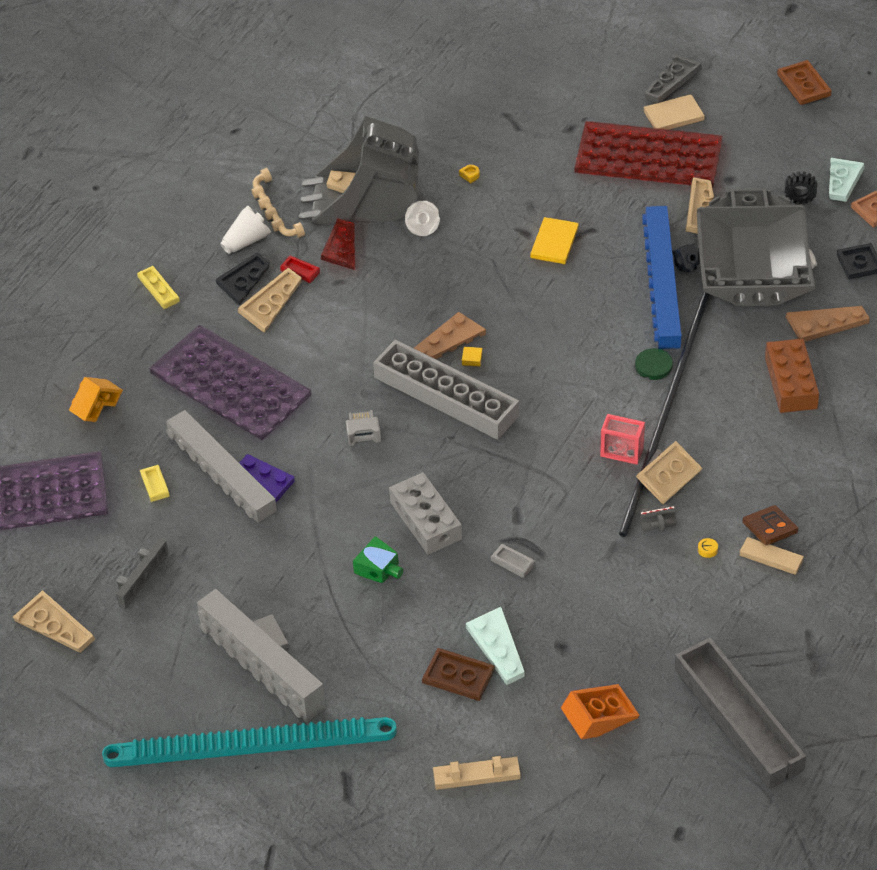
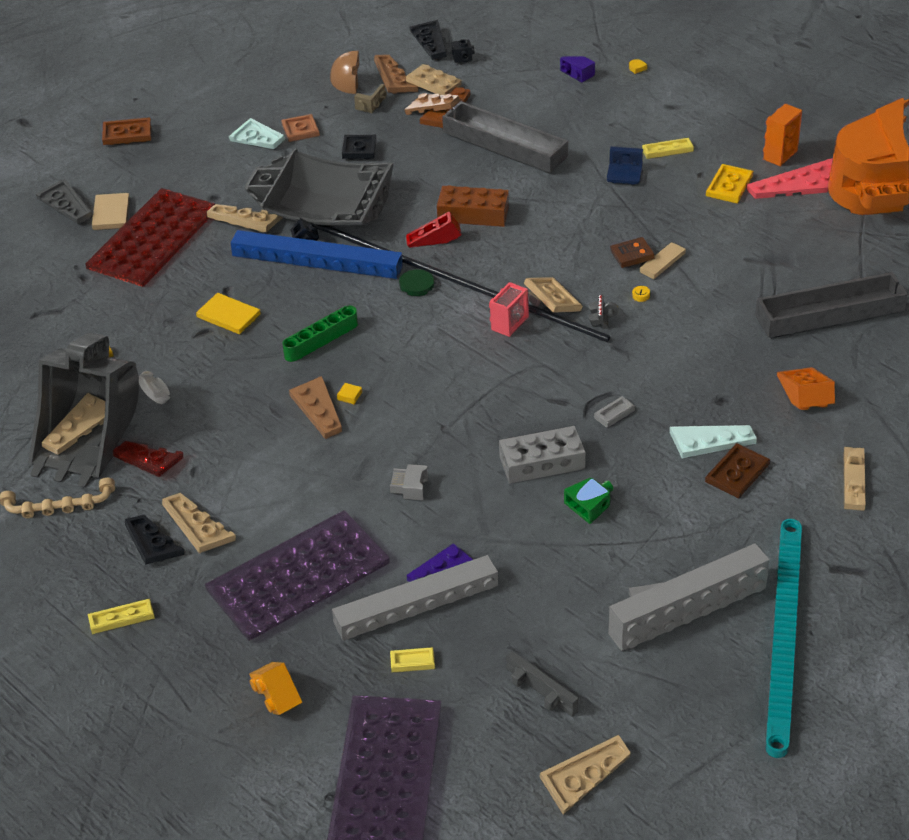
camera: 75 degrees left, 5 degrees down
(244, 231) = (87, 522): white cone -> none
(305, 270) = (153, 500): red tile -> none
(446, 389) = (391, 412): light grey brick -> none
(544, 311) = (320, 333): none -> green beam
(736, 357) = (435, 232): none -> red slope
(801, 194) = (260, 153): black tyre -> none
(824, 322) = (415, 180): medium nougat wing -> none

